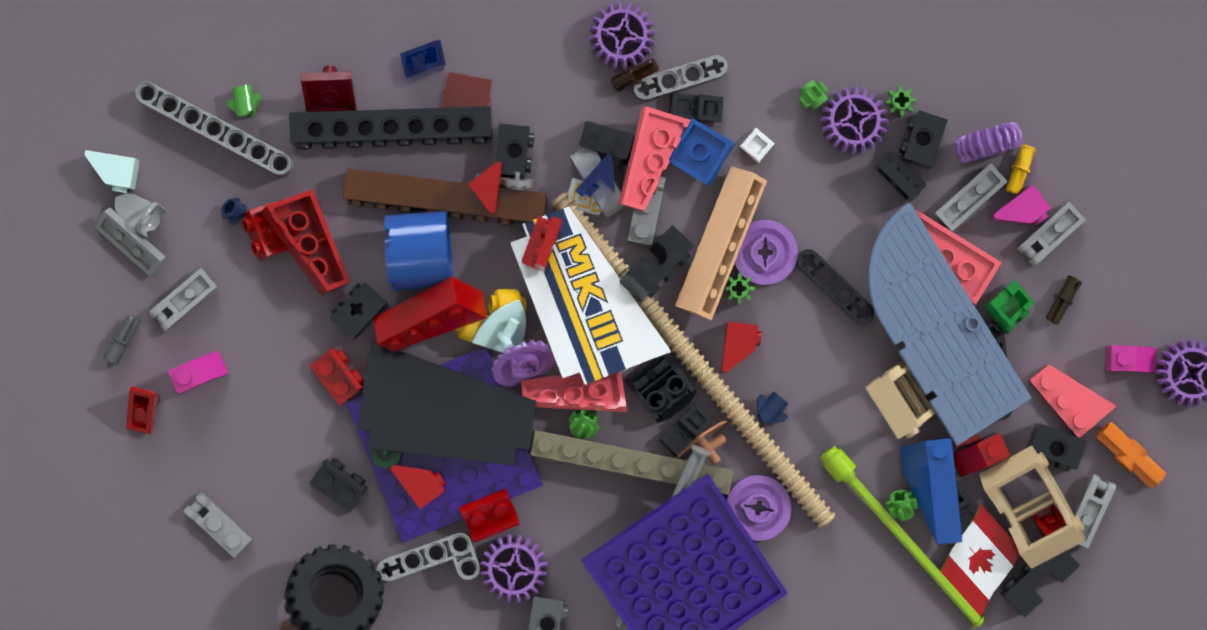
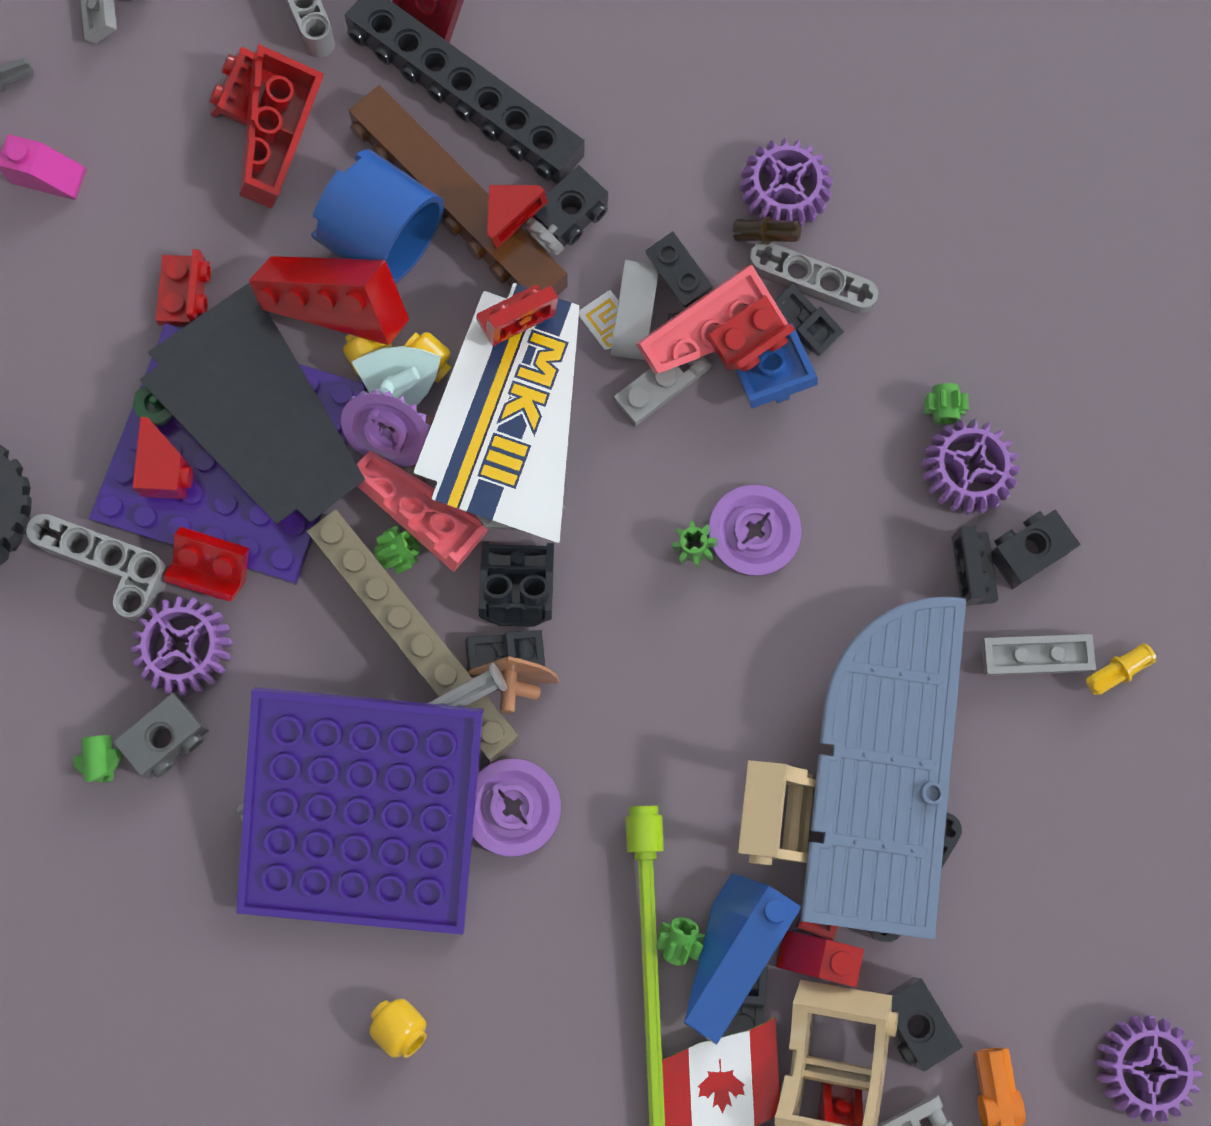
camera: 35 degrees right, 10 degrees down
(183, 299) = (96, 87): light grey plate -> none
(233, 210) = (227, 41): dark blue plate -> none
(338, 484) = (80, 403): black bracket -> none
(355, 324) = (245, 238): black brick -> none
(423, 59) = (557, 45): clear blue slope -> none
(466, 91) = (577, 115): clear red piece -> none
(602, 172) = (644, 293): clear blue slope -> none
(644, 277) = (597, 442): black arch -> none
(677, 147) = (749, 334): none -> red bracket
(711, 381) = (577, 616): tan piece -> none
(721, 242) = (714, 477): light nougat brick -> none
(739, 343) = (642, 604): red slope -> none
(756, 145) = (839, 411): white tile -> none
(771, 409) = (620, 706): dark blue piece -> none
(837, 284) = (798, 630): black beam -> none
(904, 96) = (1048, 491): bright green gear -> none
(969, 263) = (980, 726): coral wing -> none
(988, 142) = (1109, 606): medium lavender gear -> none
(1009, 306) = (989, 813): green cylinder -> none
(1023, 209) = (1090, 715): dark pink slope -> none
(1051, 233) = (1103, 770): light grey plate -> none
(1063, 299) = (1058, 857): dark brown axle -> none
(1070, 400) = (976, 983): coral wing -> none
(1130, 358) = (1087, 991): dark pink slope -> none

